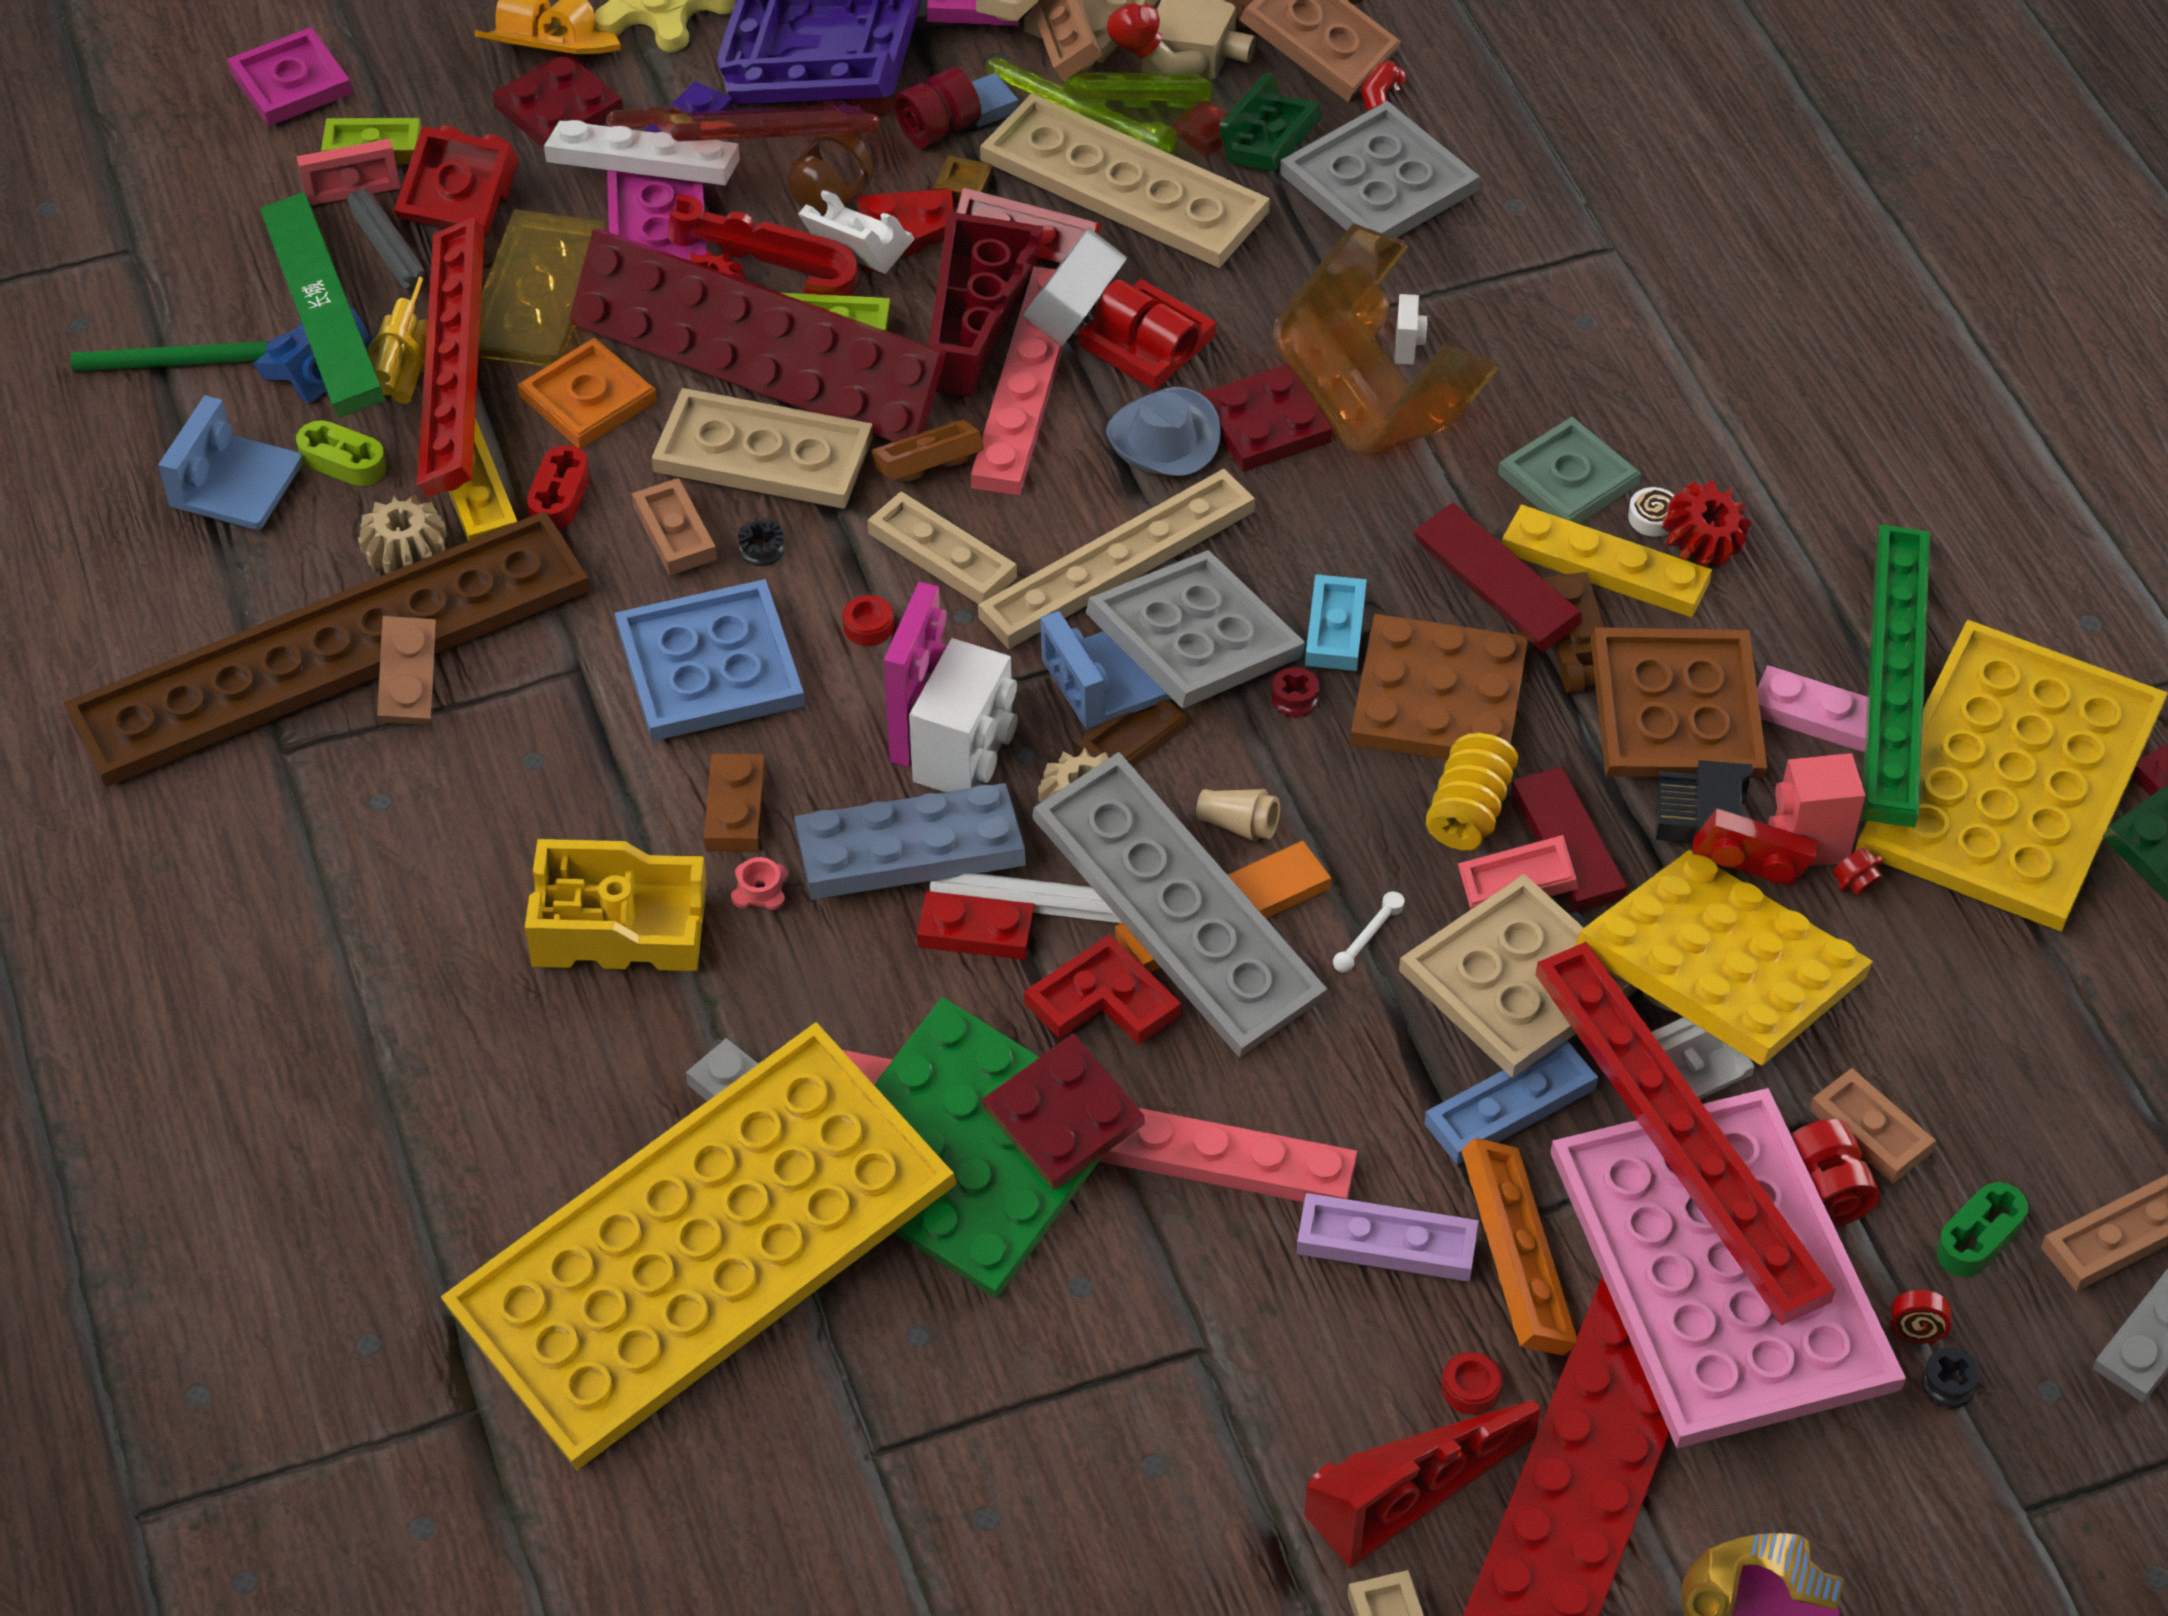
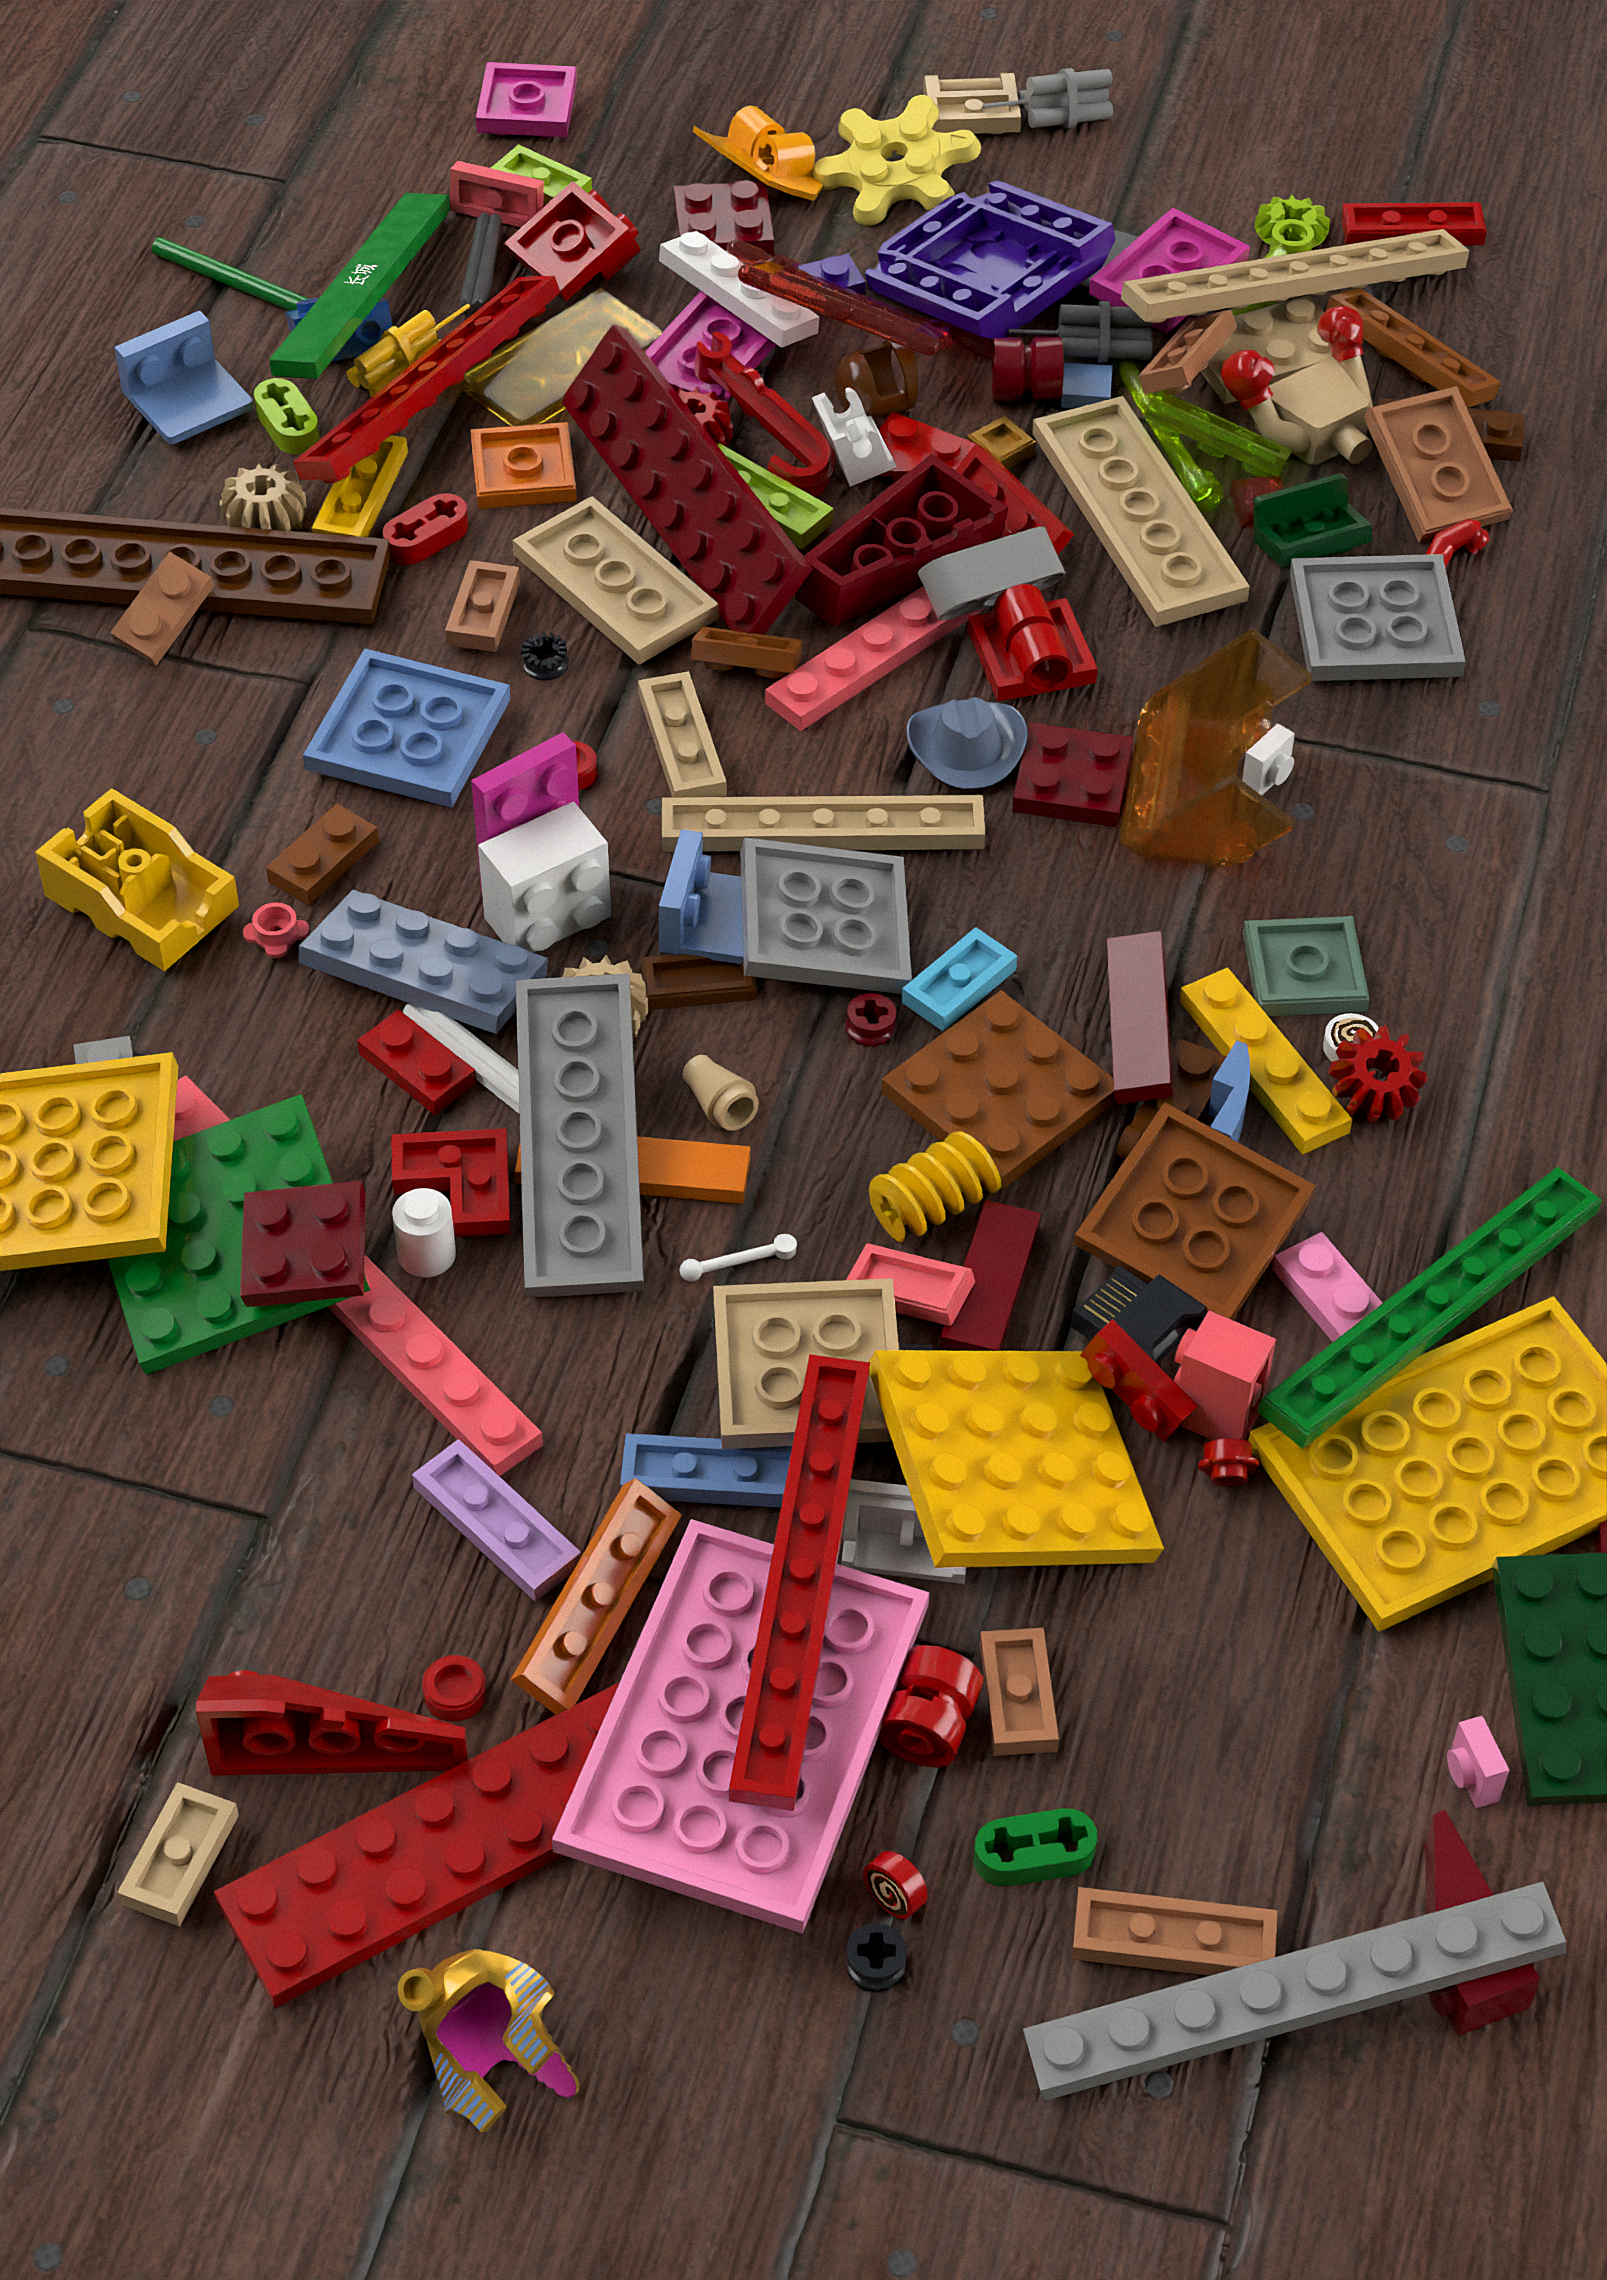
camera: 35 degrees right, 0 degrees up
(971, 47) = (1100, 332): none -> dark grey piece
(1127, 1049) = (424, 1232): none -> white brick
(1618, 595) = (1230, 1092): none -> medium blue slope

